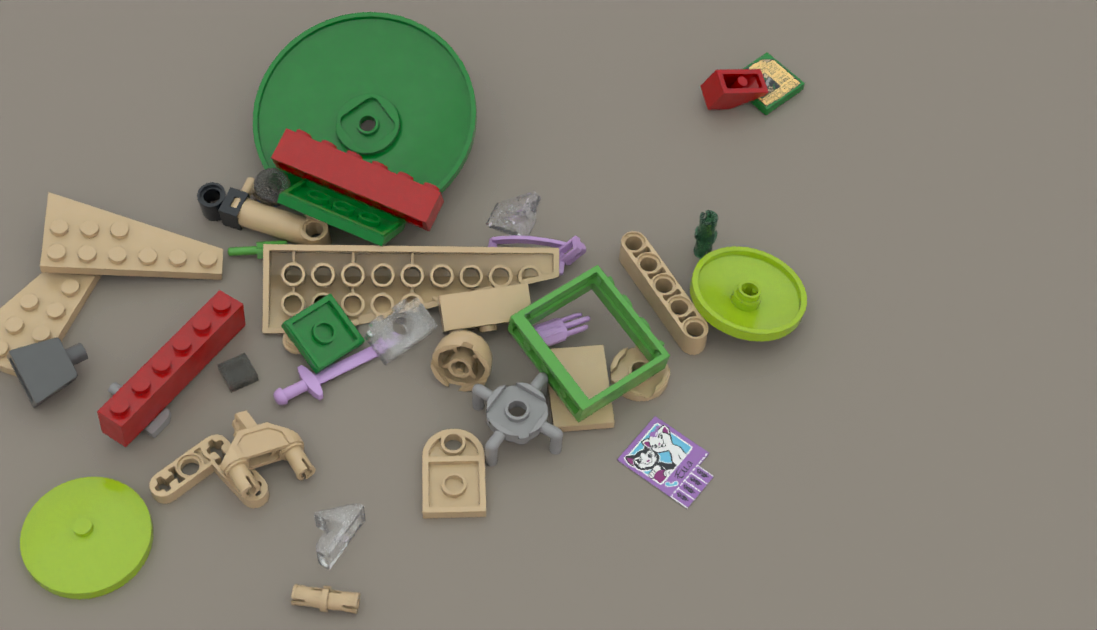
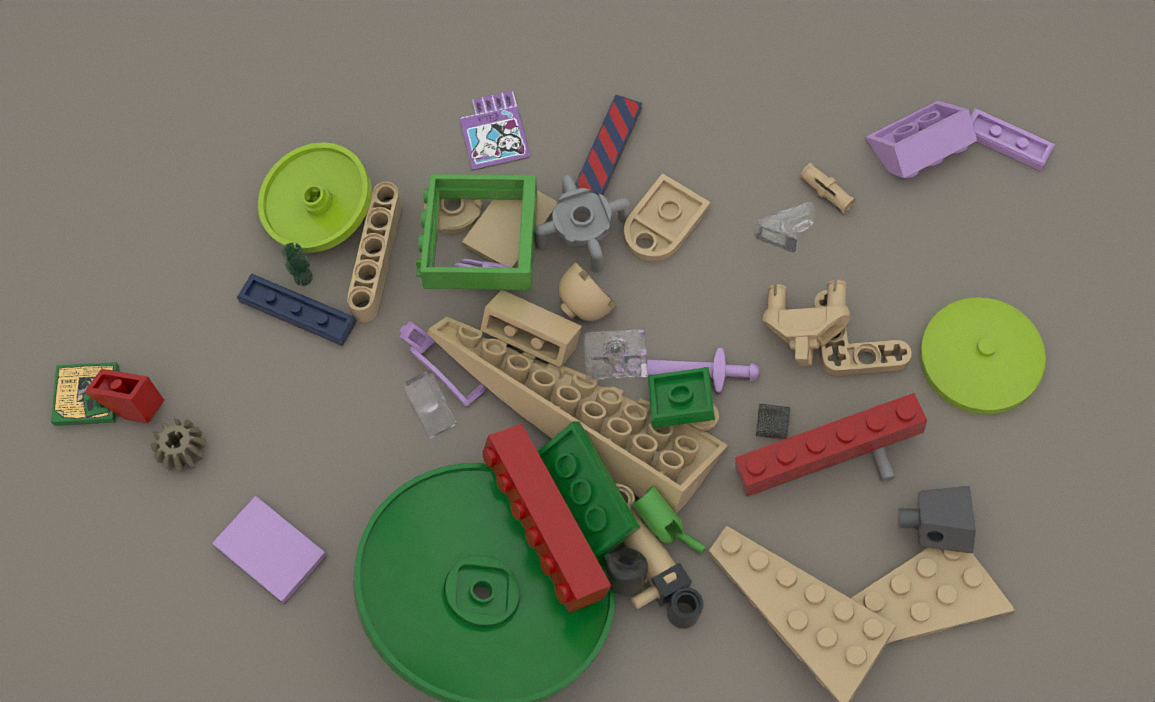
camera: 135 degrees left, 10 degrees up
(274, 231) = (657, 514): none -> bright green piece
(541, 75) = (269, 549): none -> lavender tile
(555, 509) = (609, 145): none -> tile
(666, 88) = (184, 454): none -> dark tan gear
(681, 222) = (297, 309): none -> dark blue tile

